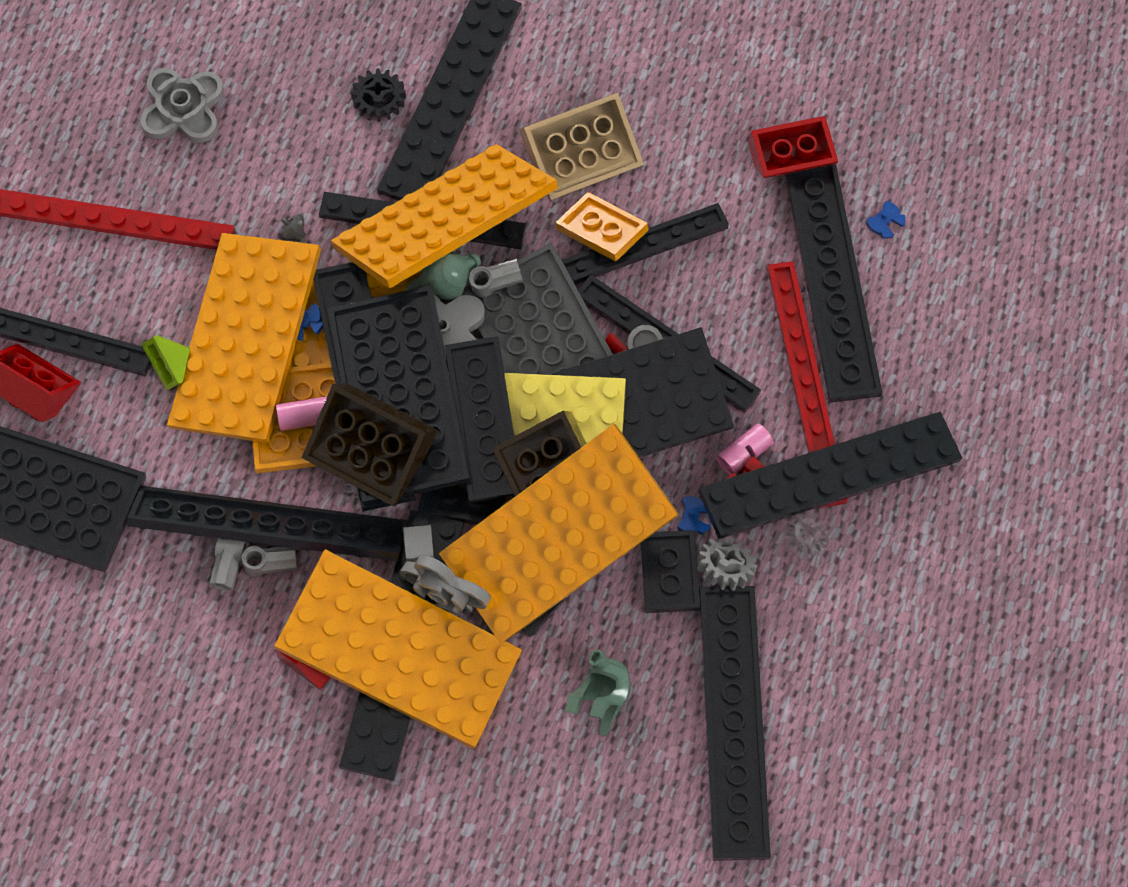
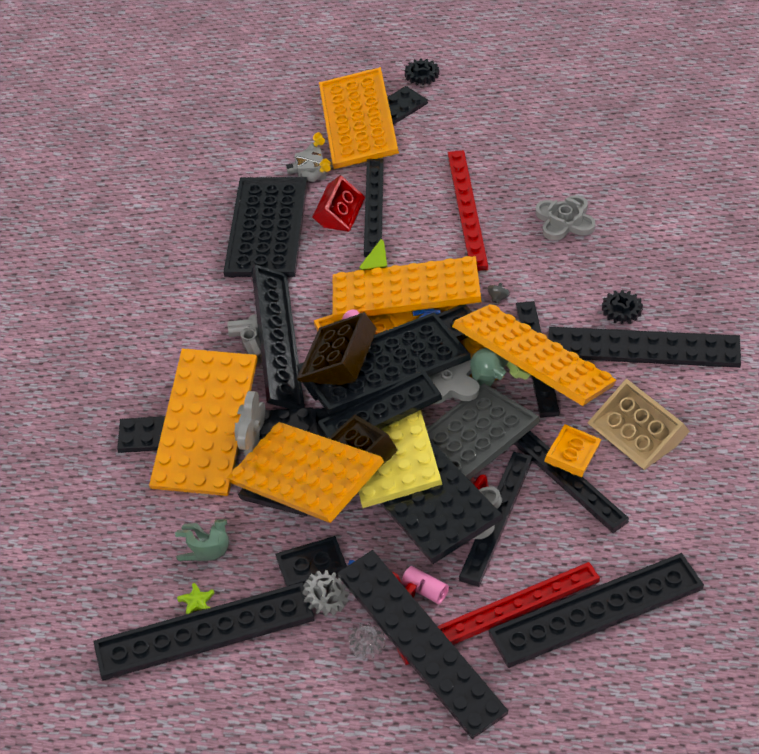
camera: 80 degrees right, 20 degrees down
(418, 542) = (280, 410): light grey brick -> none
(498, 277) = (495, 392): light grey piece -> none
(683, 721) = (196, 600): none -> lime animal
(792, 147) = (698, 549): red slope -> none
(879, 223) = (677, 637): blue piece -> none

